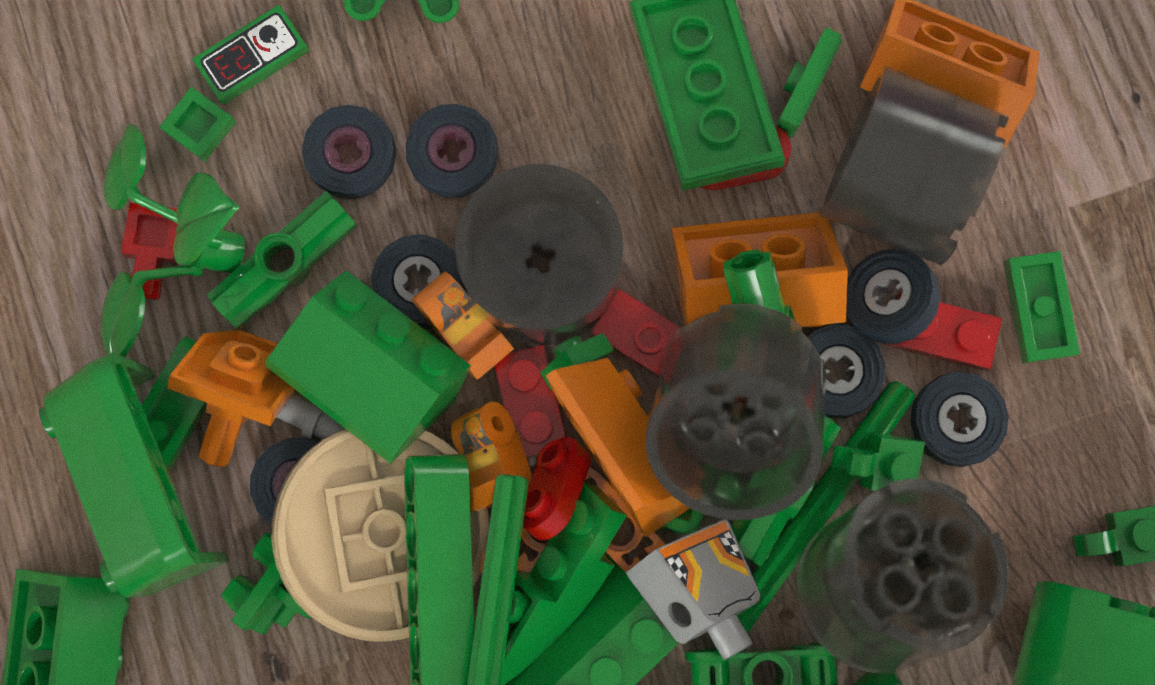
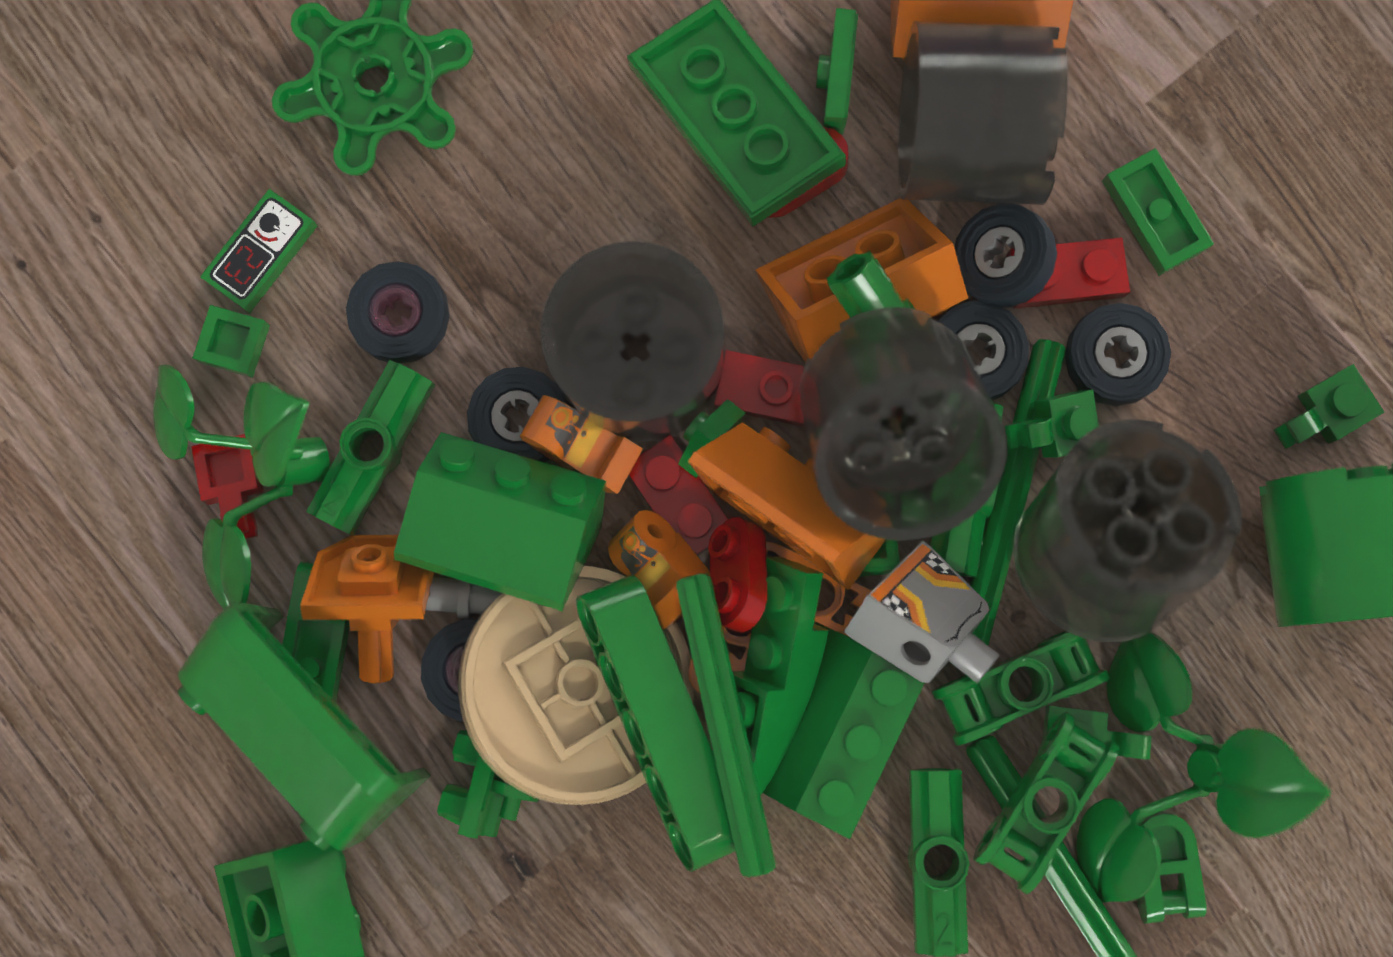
camera: 15 degrees left, 0 degrees up
(429, 138) = (474, 270): black bush -> none

